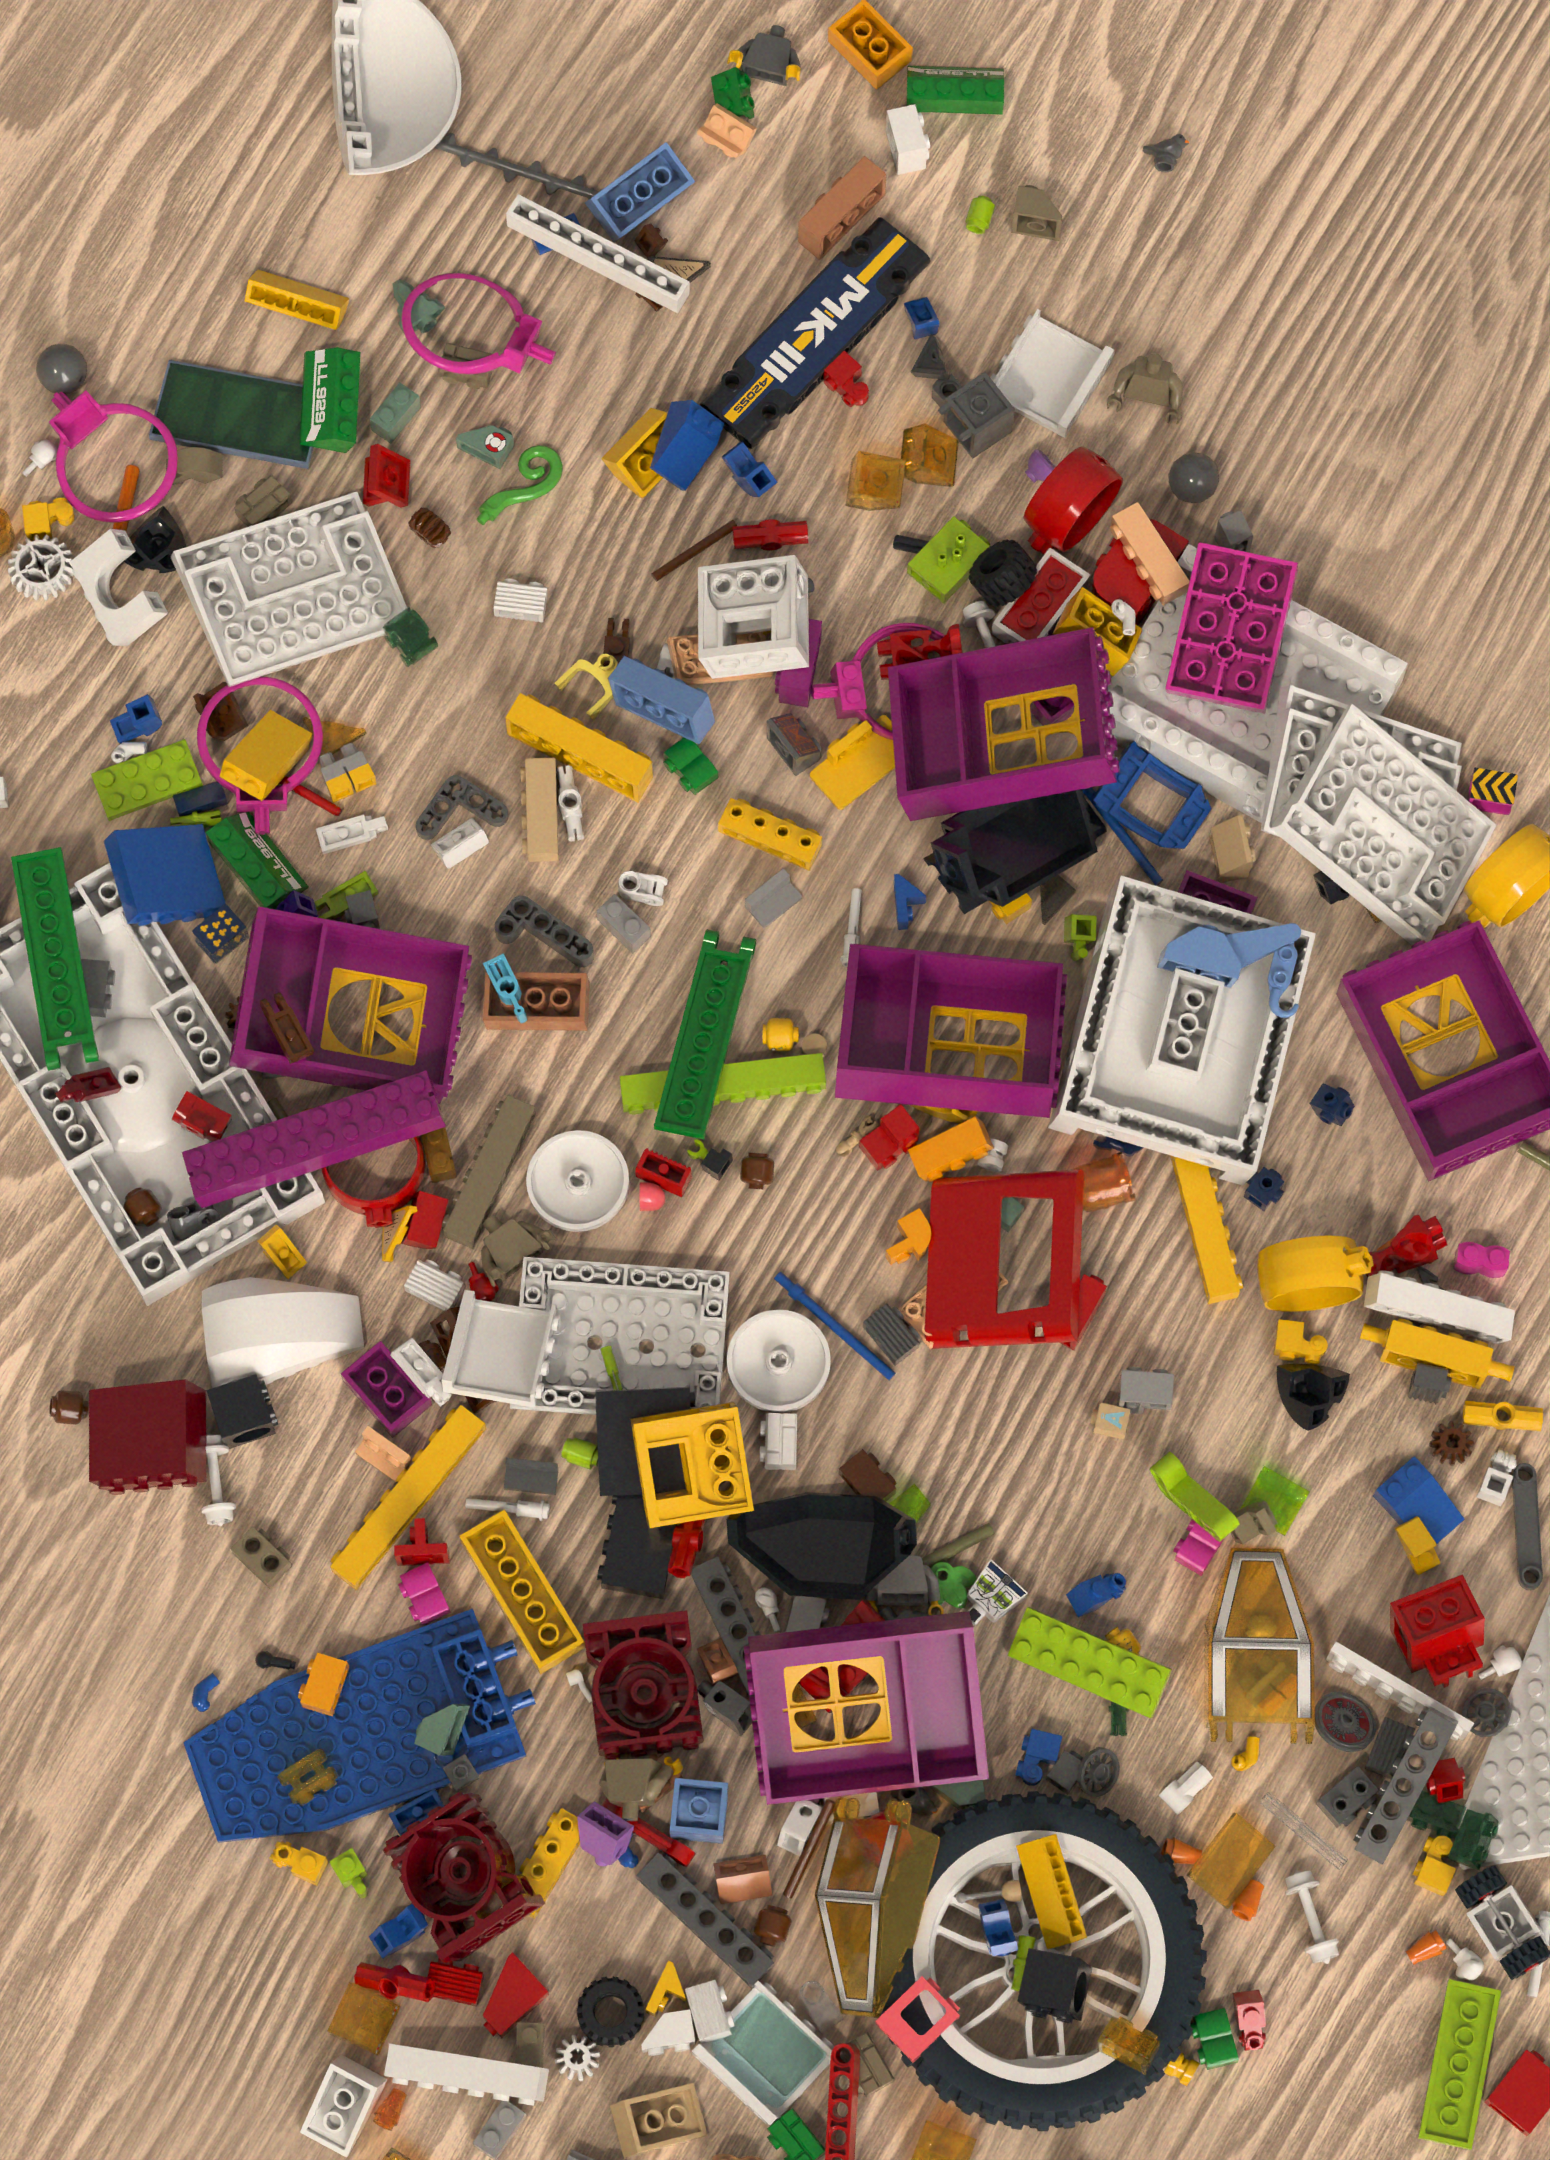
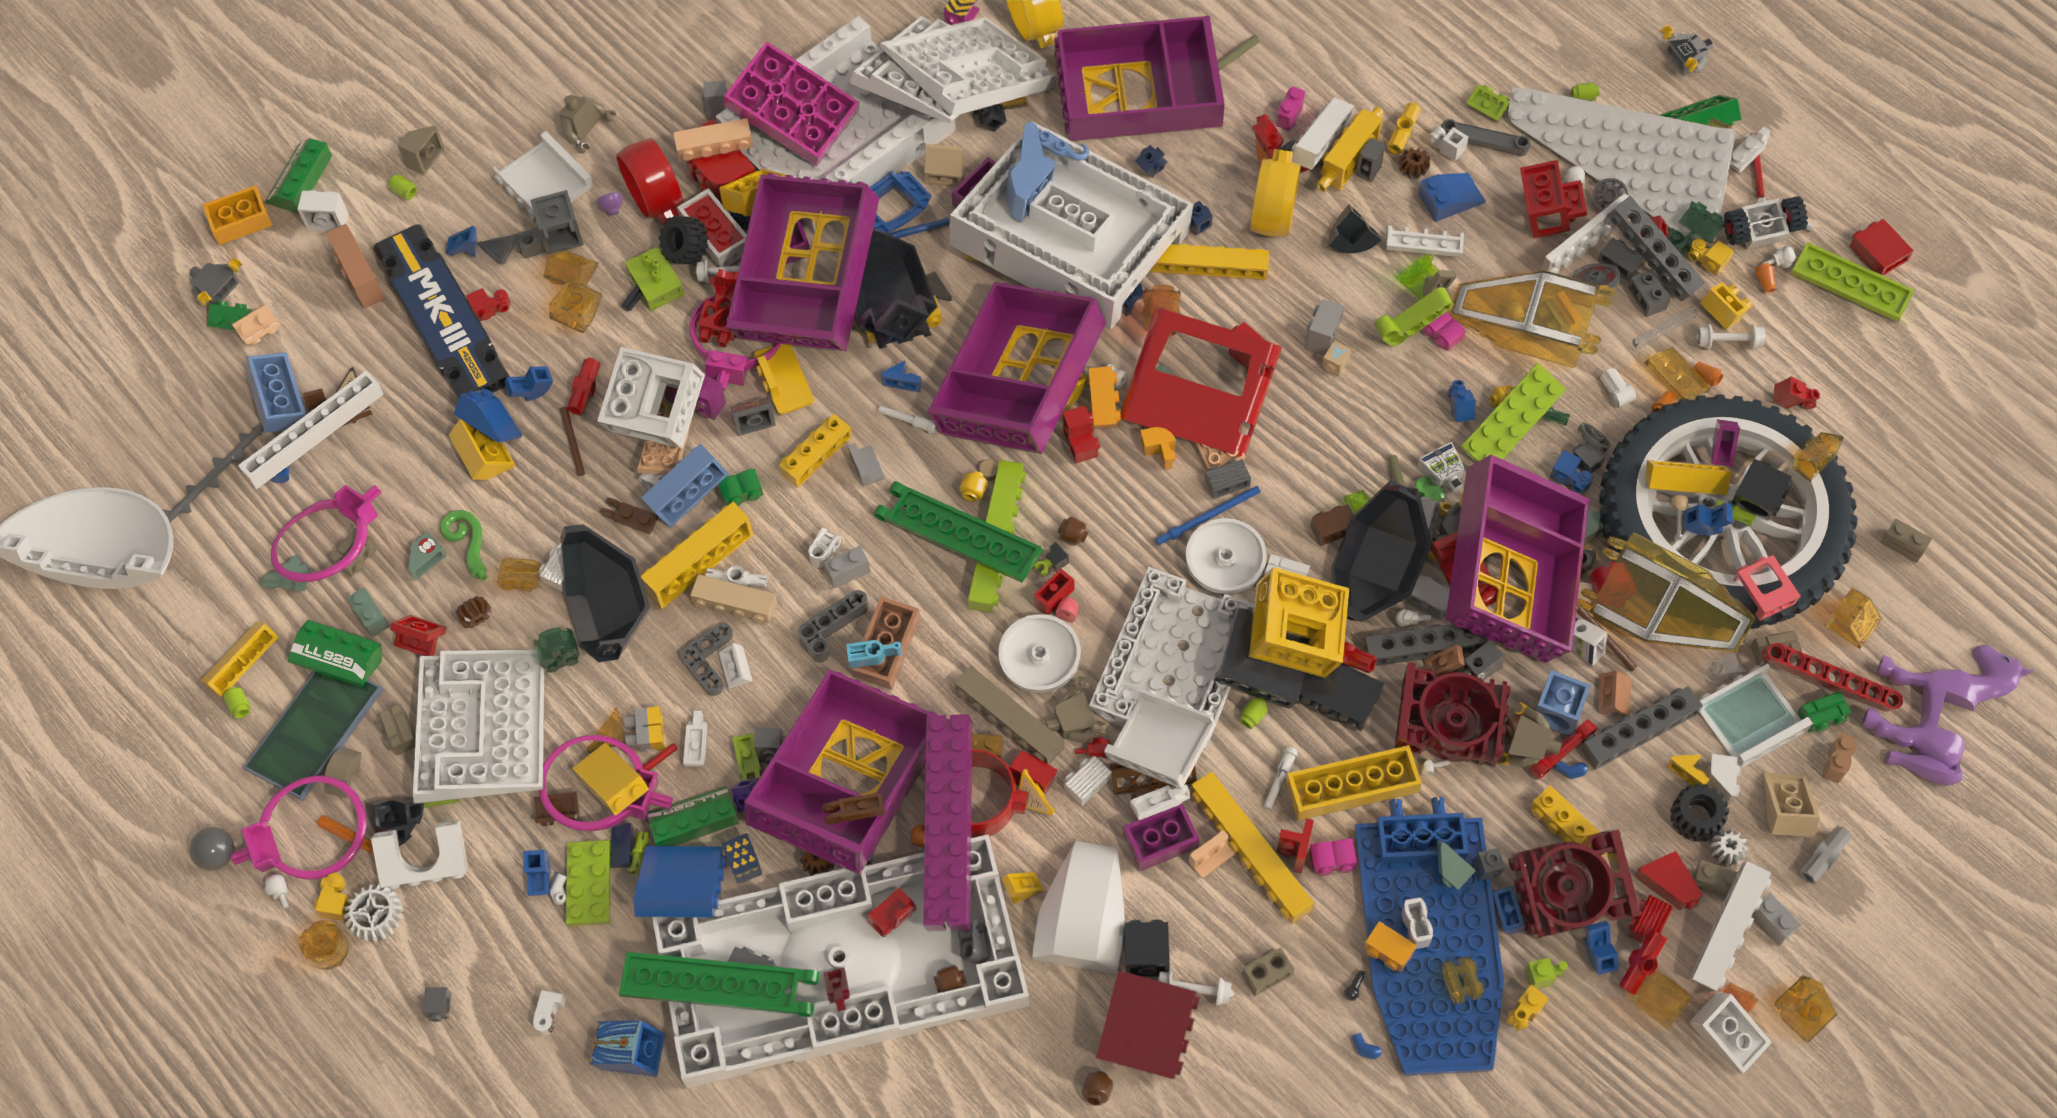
camera: 70 degrees left, 10 degrees down
(242, 320) = (236, 702): none -> lime brick
(353, 1709) = (1419, 927): none -> white brick
(484, 550) = (518, 574): none -> clear yellow brick
(488, 662) = (601, 592): none -> black panel
(531, 1476) = (1260, 755): dark grey panel -> none
(599, 672) = (643, 526): light yellow piece -> none
(603, 1834) = (1565, 773): medium lavender torso -> none
(611, 1366) = (1195, 670): lime piece -> none
(709, 2012) = (1719, 741): white brick -> none
(772, 1925) = (1657, 682): reddish brown head -> none
(865, 1128) = (1069, 460): tan piece -> none
(1080, 931) = (969, 273): lime brick -> none
(1115, 1926) = (1725, 442): none -> magenta slope
(1126, 615) = (751, 169): white arm -> none
(1167, 152) = (413, 64): dark grey animal -> none
(1193, 477) = (662, 111): dark grey piece -> none
(1215, 2039) = (1812, 415): green brick -> none
(1248, 1757) = (1605, 348): yellow arm -> none
(1291, 1343) = (1312, 234): yellow brick -> none
(1329, 1489) = (1425, 242): none -> white hinge
(1356, 1899) = (1725, 305): none -> yellow brick
(1418, 1545) = (1482, 199): yellow slope -> none

